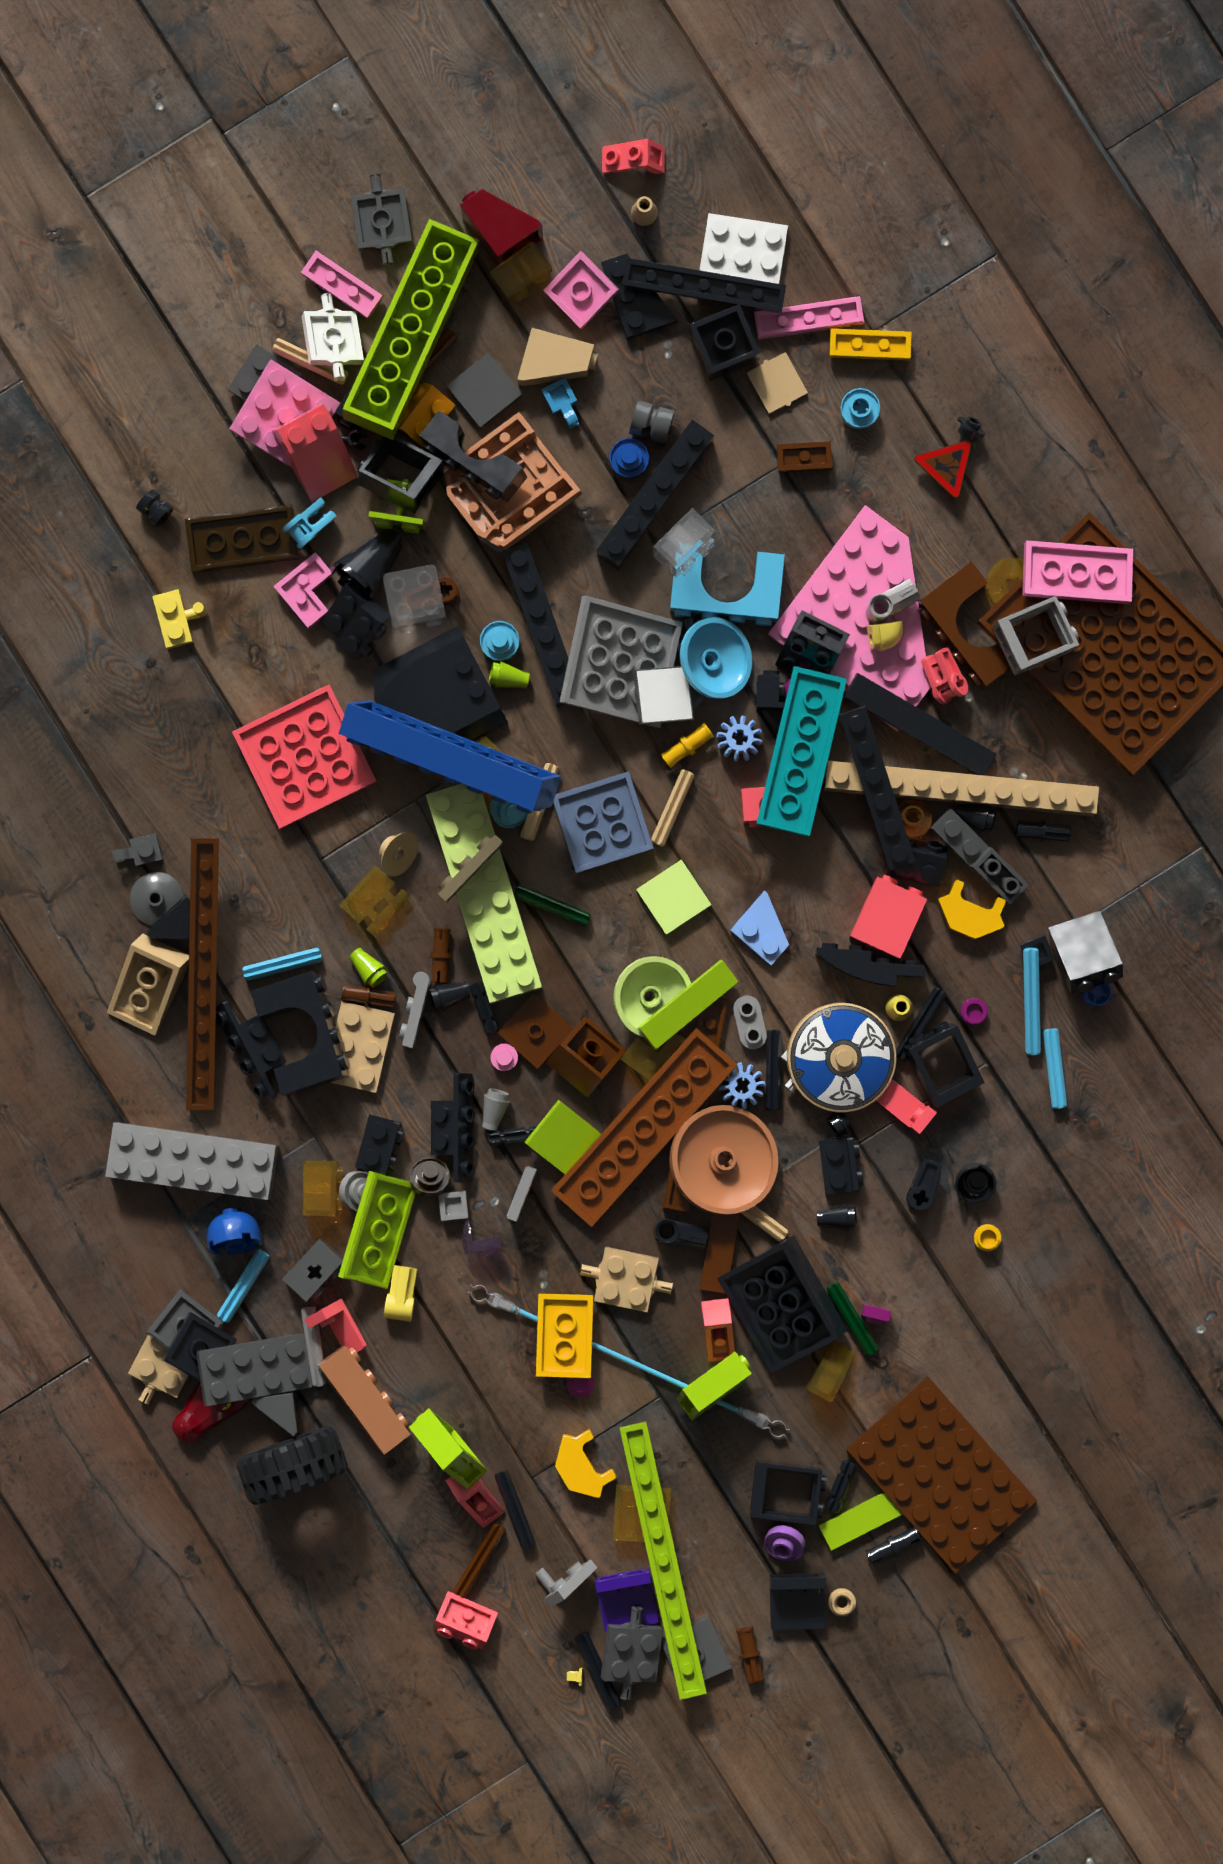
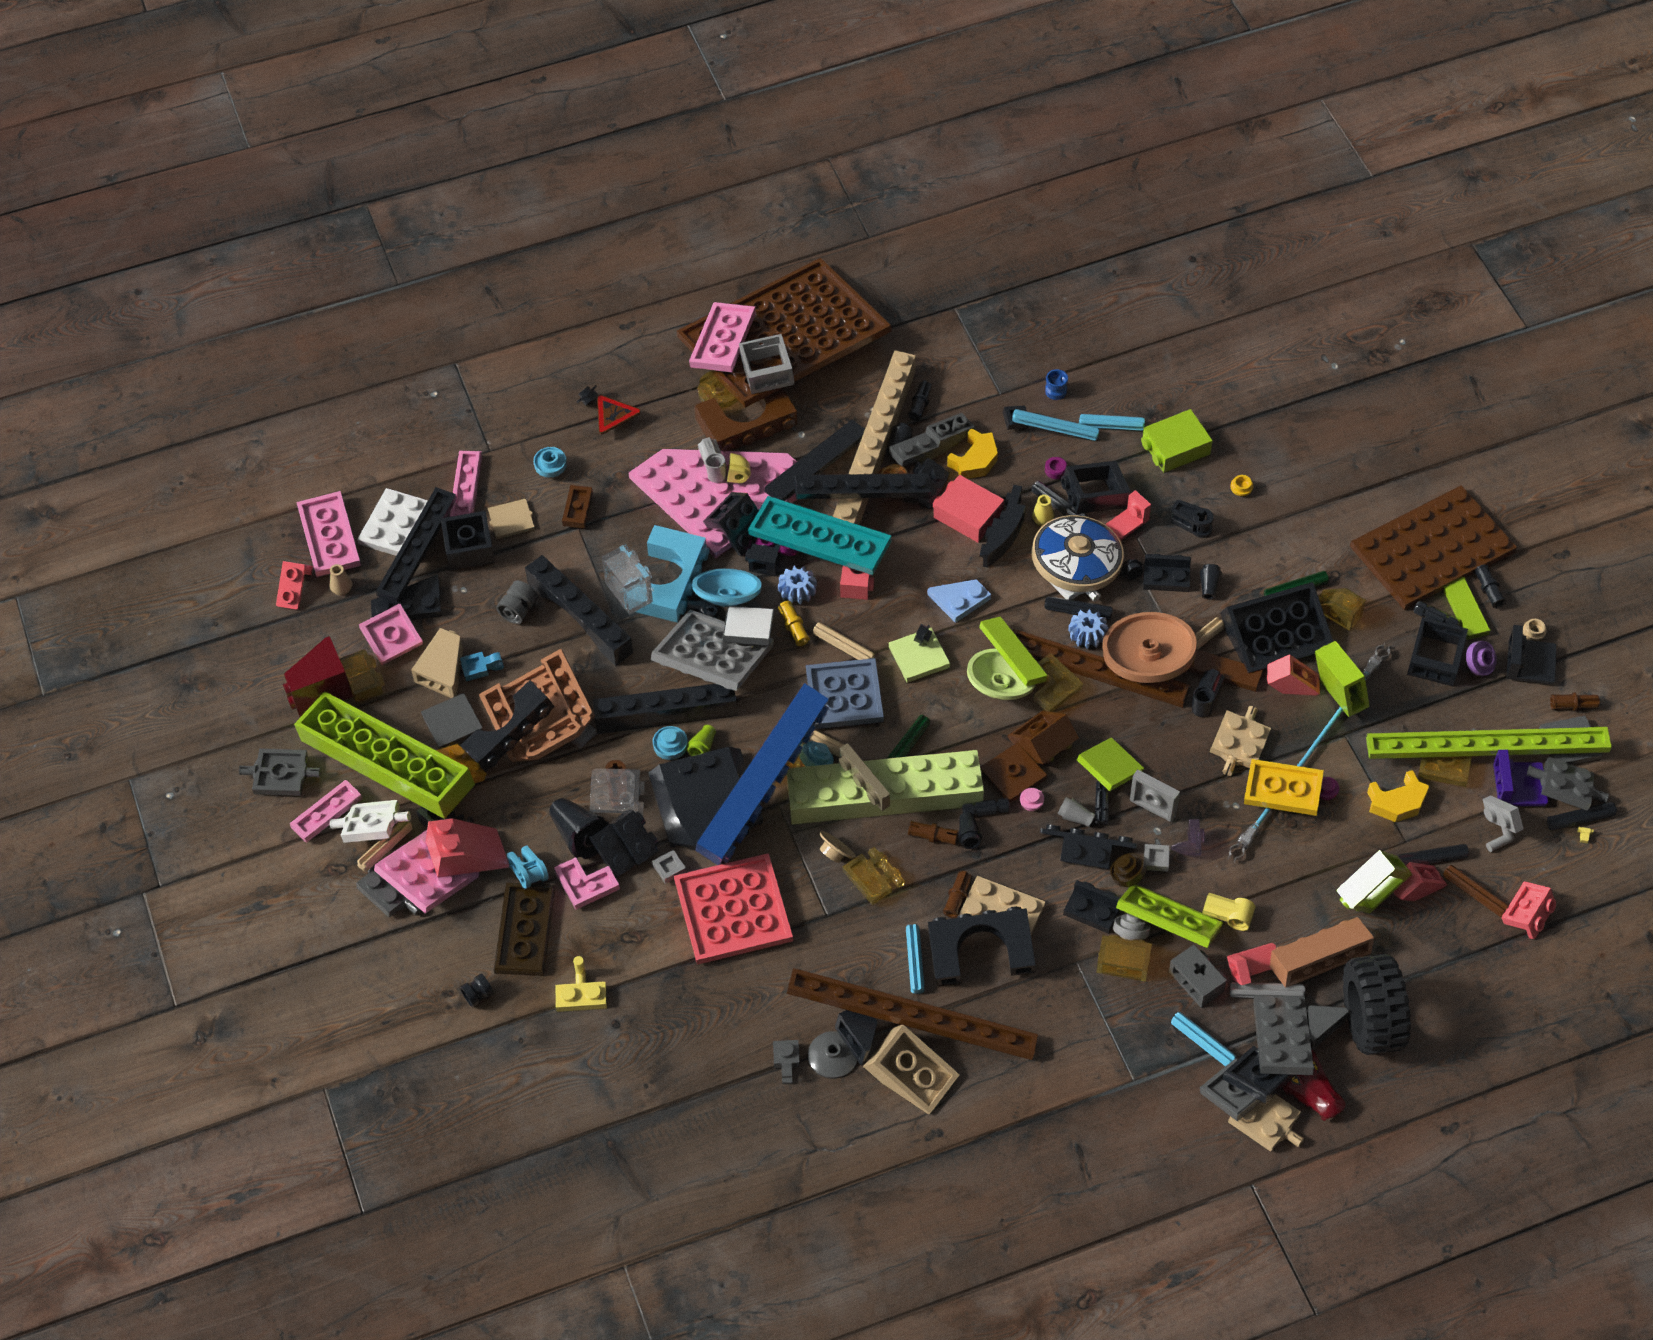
camera: 80 degrees left, 30 degrees down
(192, 1161) = (1081, 1059): light grey brick -> none
(233, 1232) = (1153, 1033): blue cylinder -> none
(254, 1048) = (991, 993): black bracket -> none
(342, 676) = (669, 866): none -> light grey plate
(369, 969) = (933, 888): lime cone -> none
(386, 521) = (541, 799): lime plate -> none
(411, 500) = (494, 775): black window -> none
(415, 1008) = (977, 856): light grey plate -> none
(629, 458) = (542, 625): blue plate -> none
(644, 1127) = (1112, 701): dark orange plate -> none
(692, 897) = (923, 634): none -> black plate
(710, 177) = (328, 533): none -> bright pink plate
(749, 1022) = (1035, 618): light grey plate -> none
(870, 344) = (500, 449): yellow plate -> none
(875, 1314) = (1294, 566): magenta plate -> none
(943, 675) = (787, 434): coral piece -> none
(975, 1183) = (1196, 483): black hair -> none
(1036, 1150) = (1176, 441): none -> lime brick
(1086, 952) = (1024, 379): brick -> none

